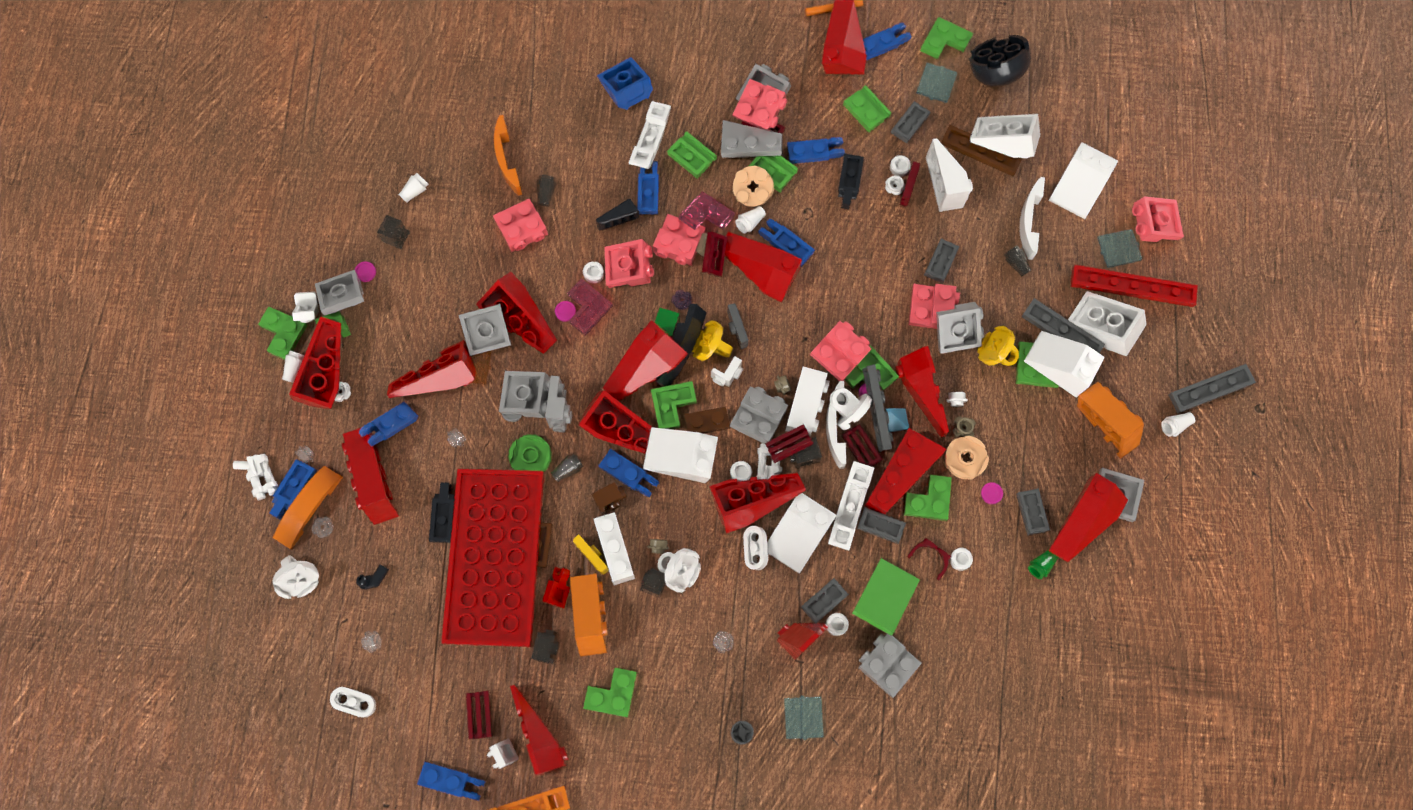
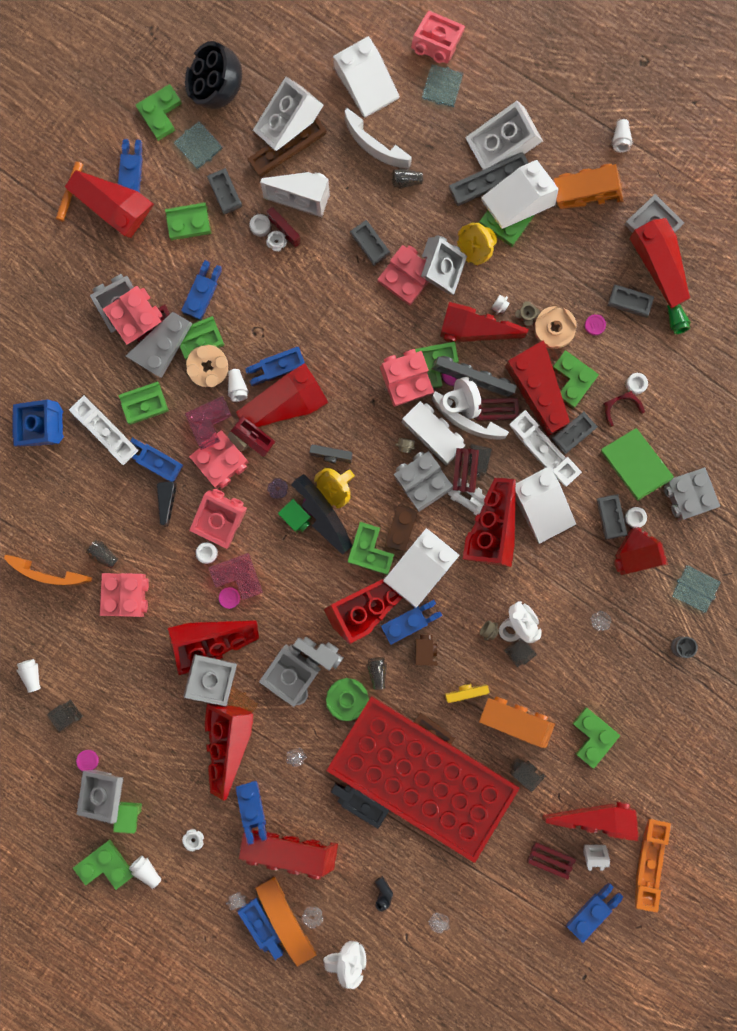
camera: 60 degrees left, 10 degrees up
(257, 467) = (224, 950): white piece -> none
(306, 307) = (94, 833): white bracket -> none
(320, 369) = (165, 849): red wedge -> none
(353, 702) = (484, 964): white plate -> none
(557, 591) = (482, 737): red plate -> none
(614, 548) = (473, 670): white brick -> none
(646, 359) = (322, 552): red wedge -> none
(733, 371) = (371, 482): white bracket -> none
(741, 471) = (462, 524): white tile -> none
(755, 548) = (536, 549): white plate -> none
(850, 179) = (248, 276): black hinge -> none
(897, 419) = (490, 364): medium azure slope -> none
(1134, 285) = (484, 95): red plate -> none
(1212, 388) = (608, 89): dark grey plate -> none

